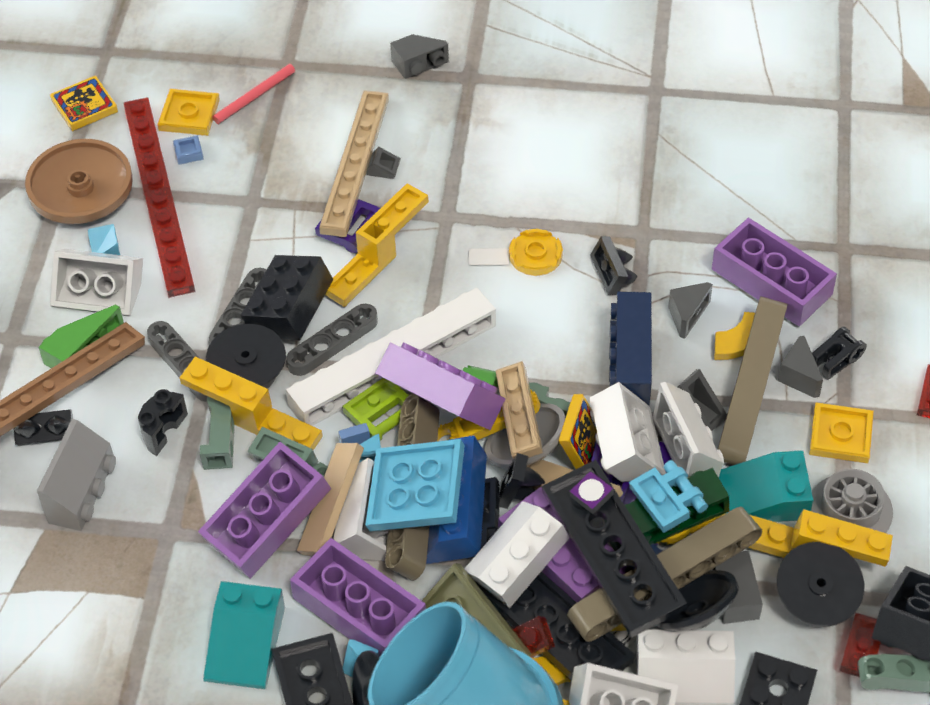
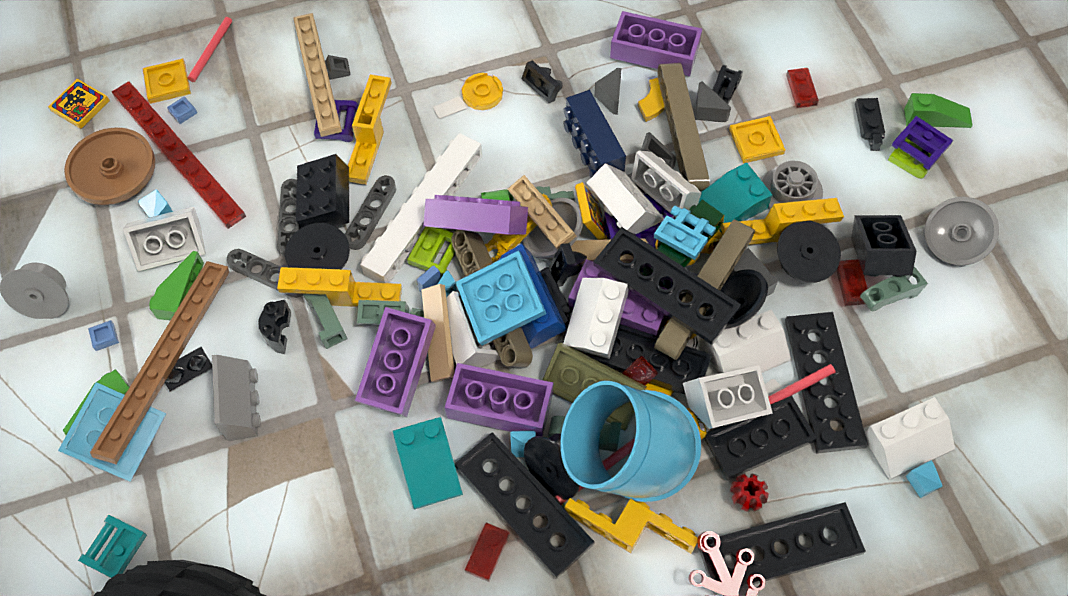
camera: 25 degrees left, 10 degrees up
(591, 492) = (633, 252): tile -> none

